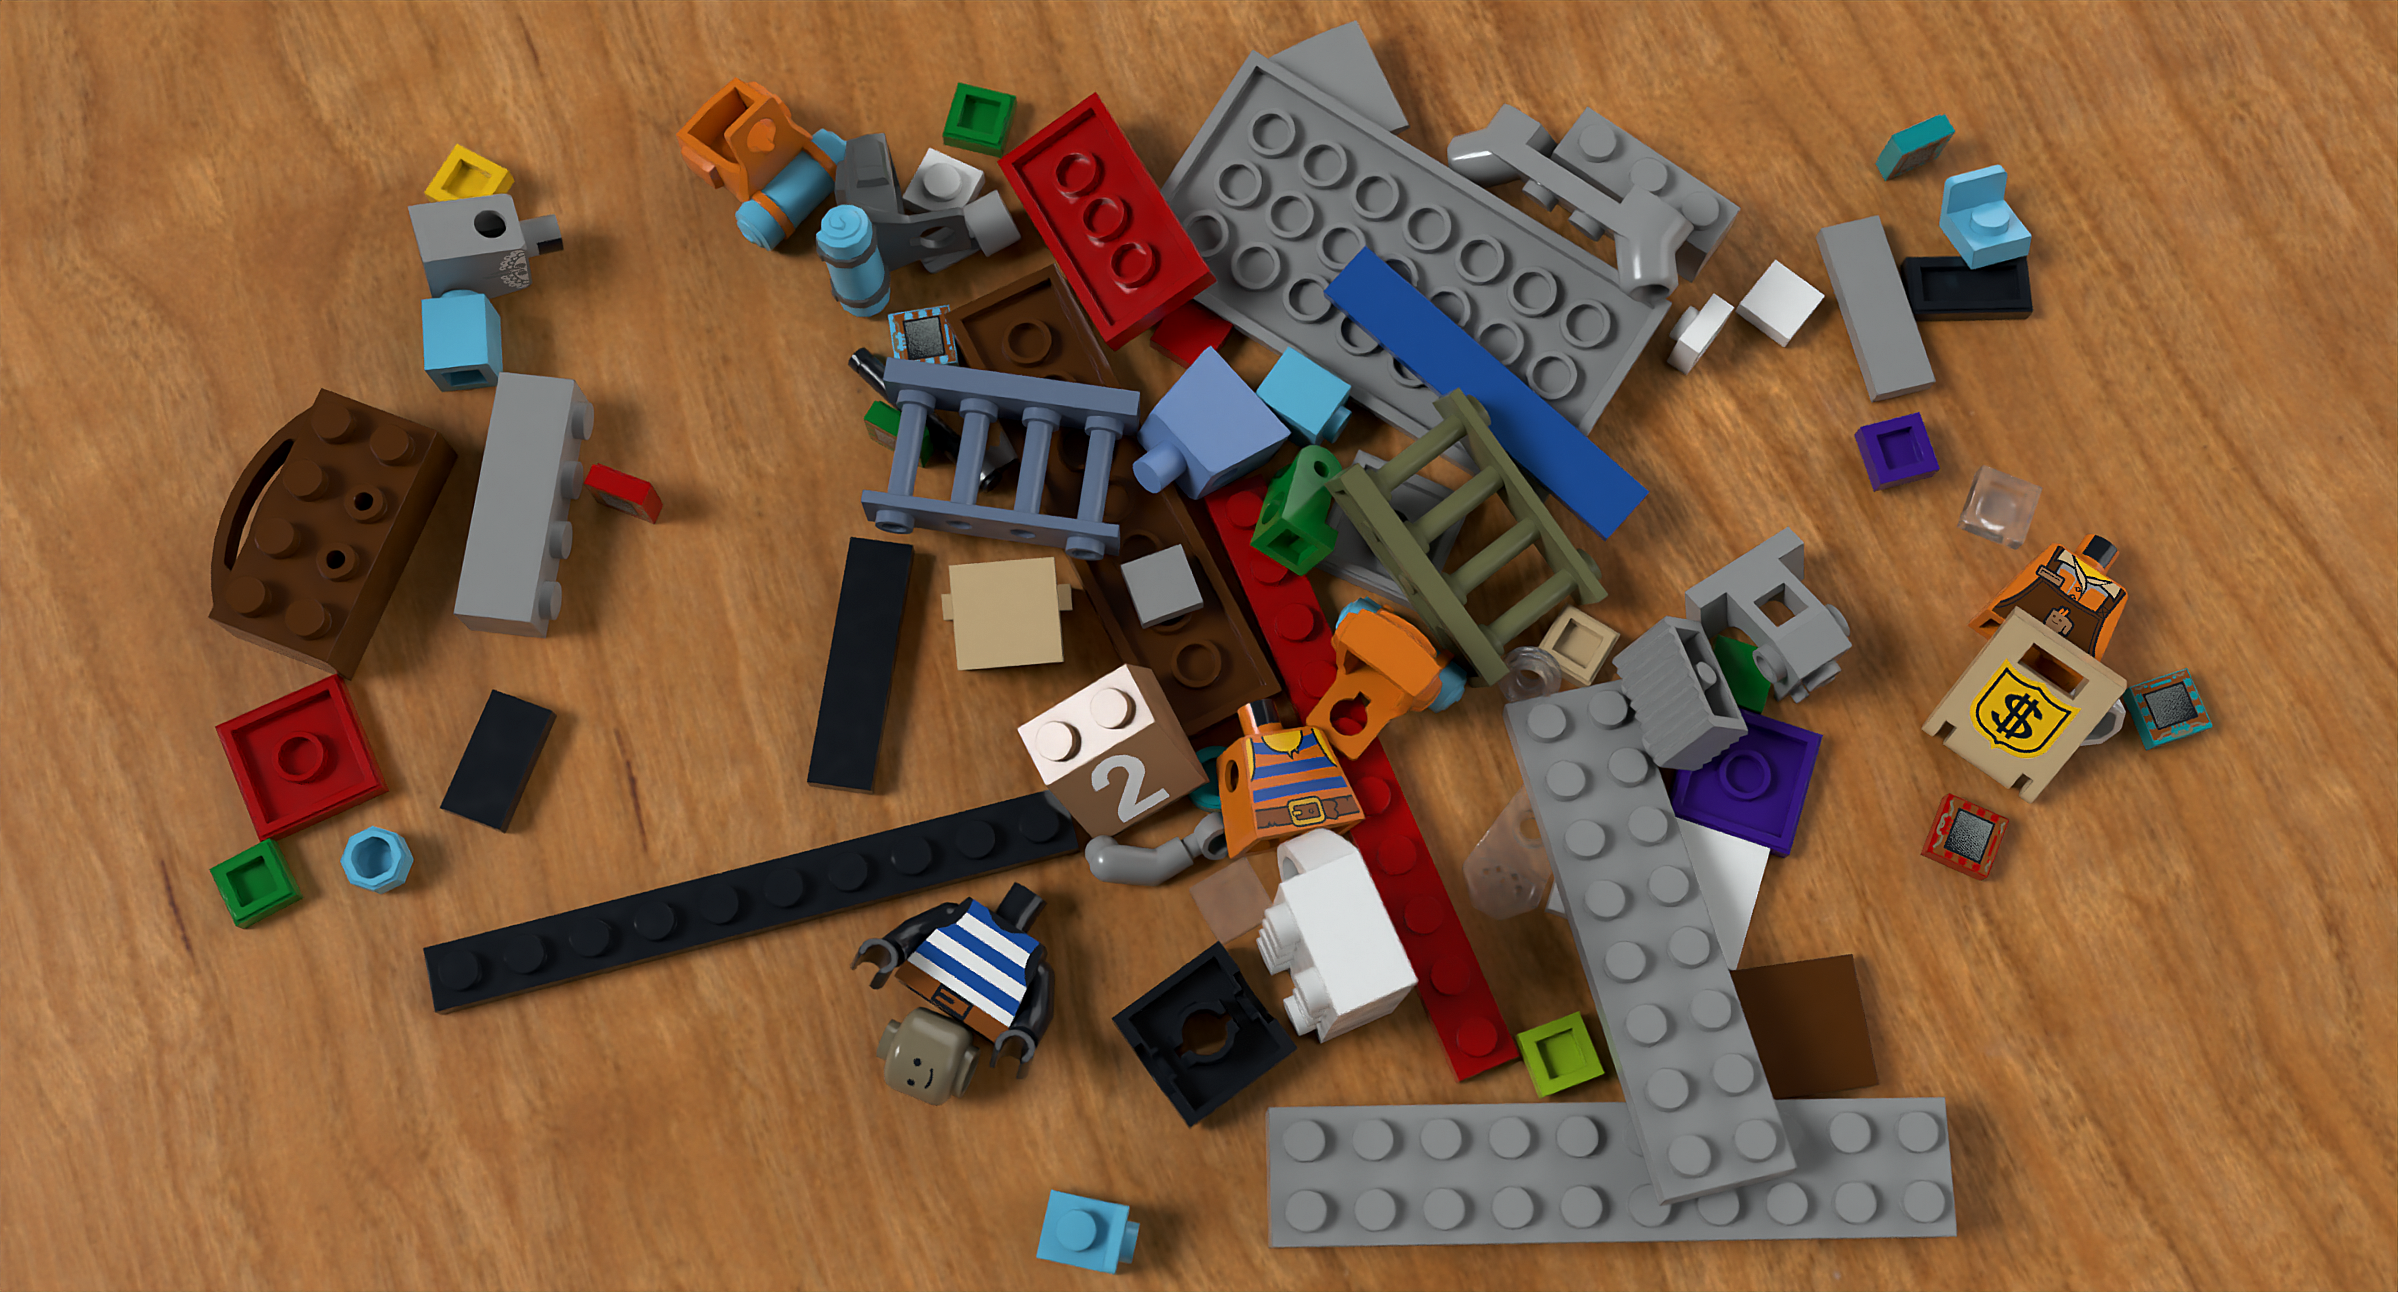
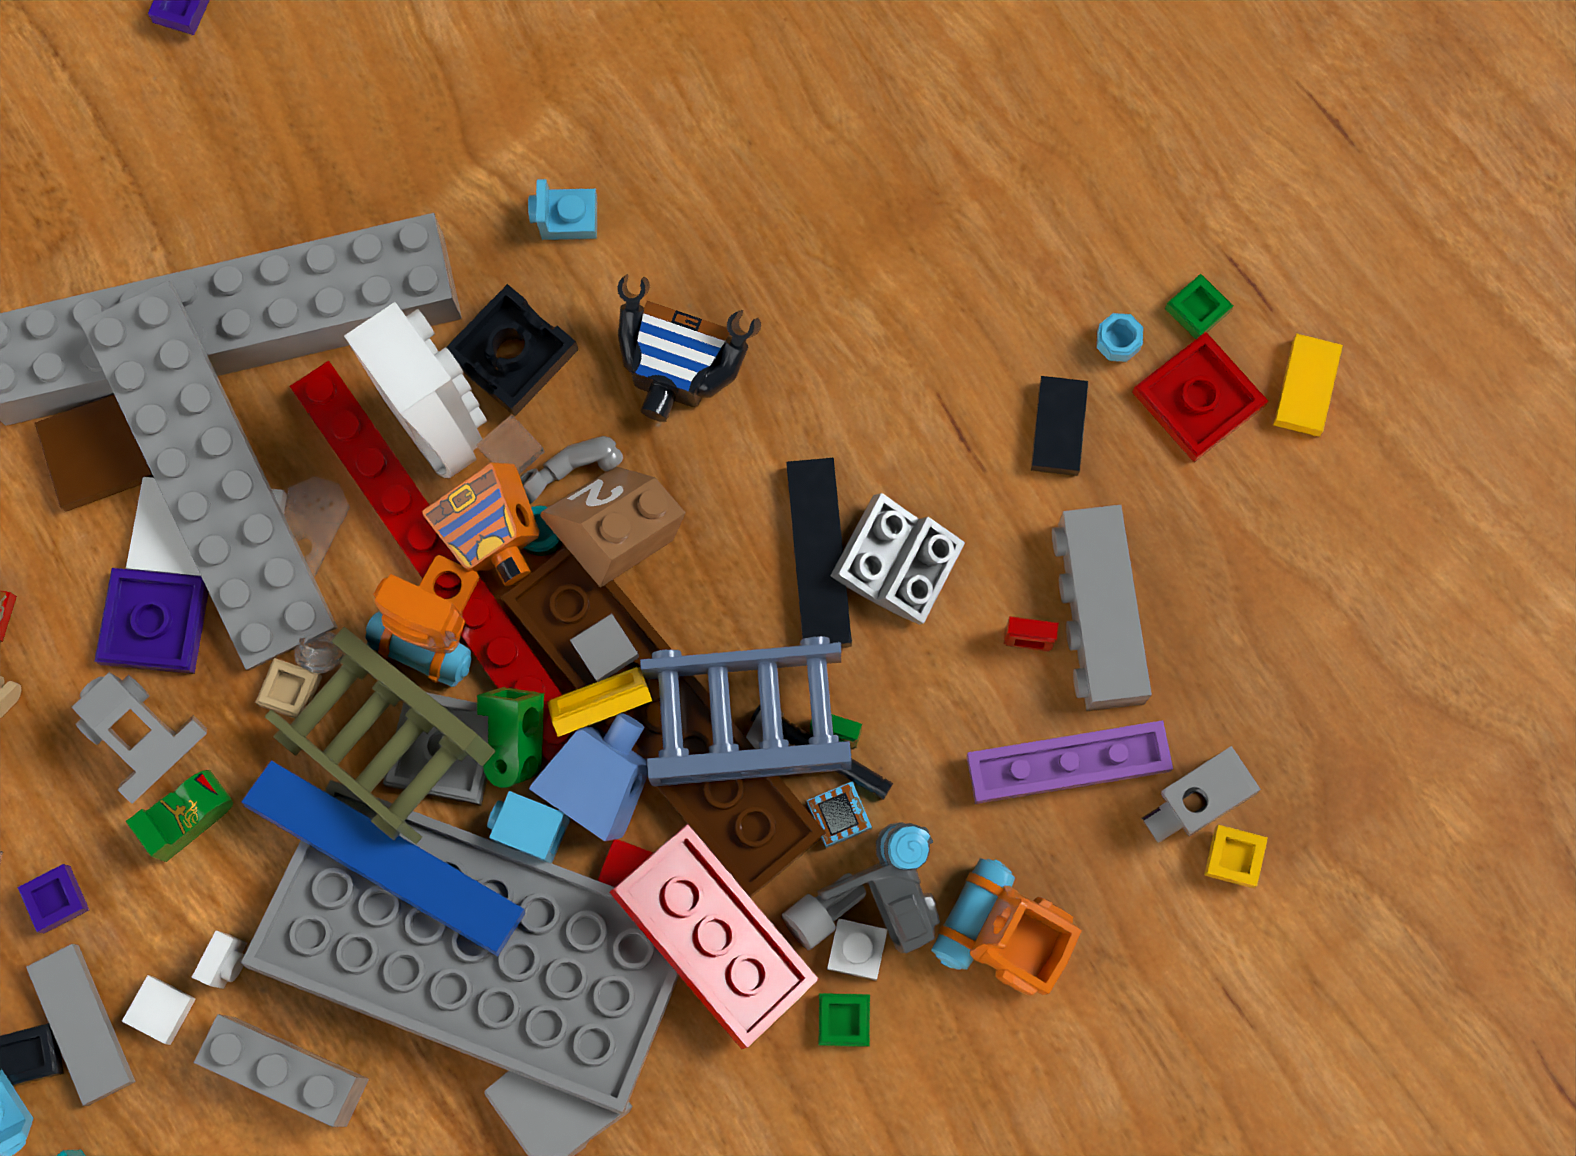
camera: 175 degrees right, 0 degrees up
(155, 740) = (1308, 385): none -> yellow tile
(326, 531) = (1241, 552): reddish brown piece -> none
(461, 340) = (1194, 724): medium azure brick -> none
(628, 334) = (1069, 762): none -> medium lavender plate
(748, 901) = (850, 372): black plate -> none
(762, 629) = (898, 559): none -> light grey slope
(928, 1056) = (697, 288): dark tan head -> none
(1006, 613) = (712, 593): tan plate -> none
(1182, 512) = (598, 701): none -> yellow tile
(1559, 1055) = (261, 392): lime plate -> none
(1642, 226) = (268, 1005): light grey plate -> none
(1679, 695) = (201, 653): light grey brick -> none
(1731, 512) = (181, 815): none -> green leg
(1741, 673) = (168, 692): green tile -> none

